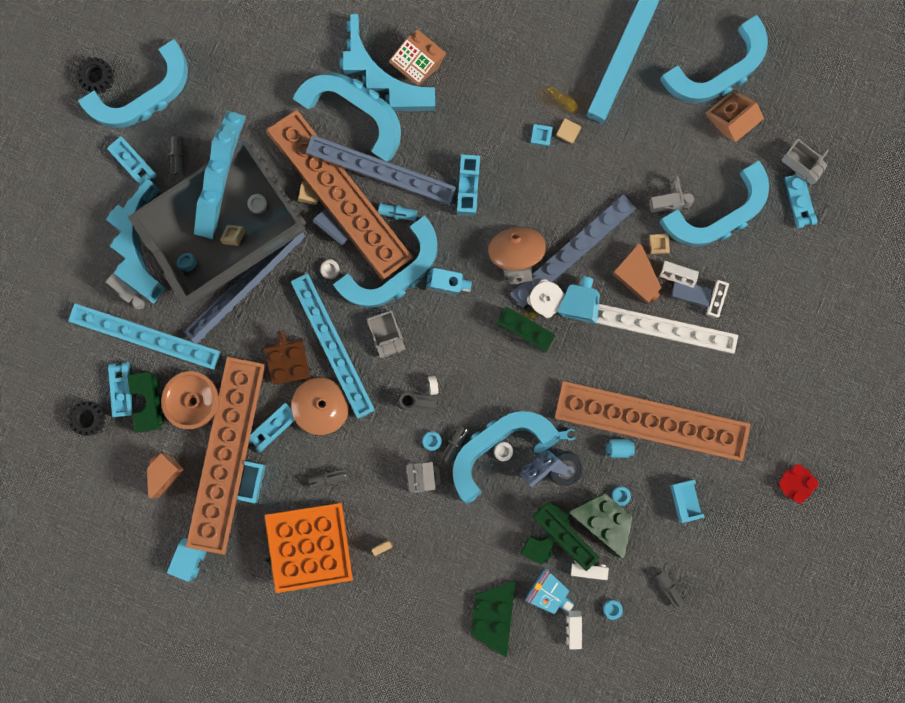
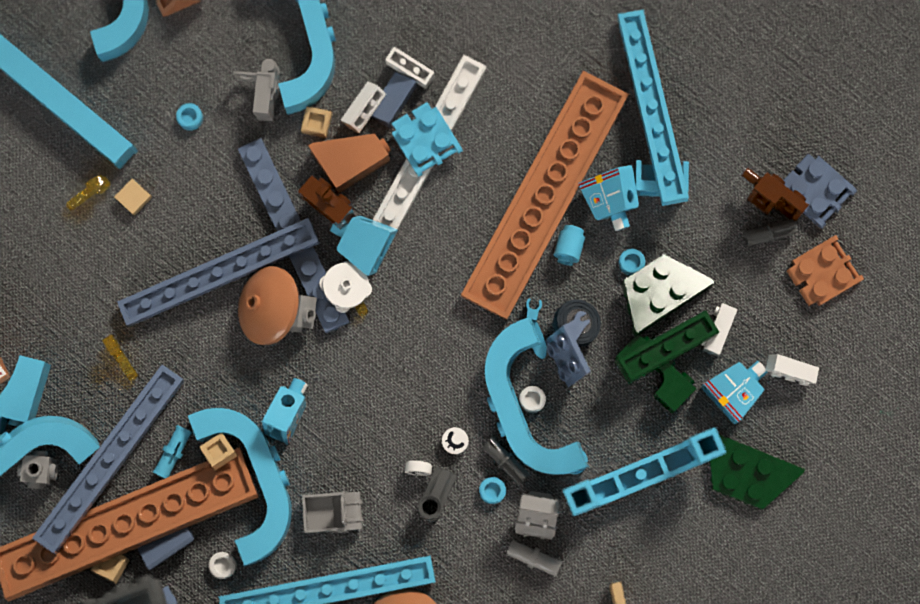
camera: 65 degrees left, 5 degrees down
(359, 131) = (46, 474): none -> light grey brick
(392, 482) = (534, 558): none -> light grey pin
(406, 243) = (218, 451): none -> tan plate
(457, 151) = (116, 351): none -> clear yellow bar
(459, 405) = (455, 441): none -> white tile
(468, 185) = (164, 347): medium azure arch -> none
(471, 543) = (644, 473): none -> medium azure arch
(526, 329) = (378, 323): dark green arch -> none
(531, 207) = (218, 272): none -> sand blue plate
(541, 135) = (127, 233): medium azure tile -> none
(604, 262) = (322, 198): none -> reddish brown plate
(612, 609) = (777, 313): medium azure tile -> none
(637, 153) = (189, 116): none -> medium azure tile
(651, 635) = (823, 272): none -> nougat plate
(663, 469) = (612, 195): none -> medium azure torso
(668, 324) = (424, 138): none -> medium azure plate
(698, 583) = (772, 193): none -> reddish brown plate
(711, 614) = (820, 187): none -> sand blue plate
(737, 481) = (652, 108): none -> medium azure plate
(798, 483) = (675, 33): red piece -> none

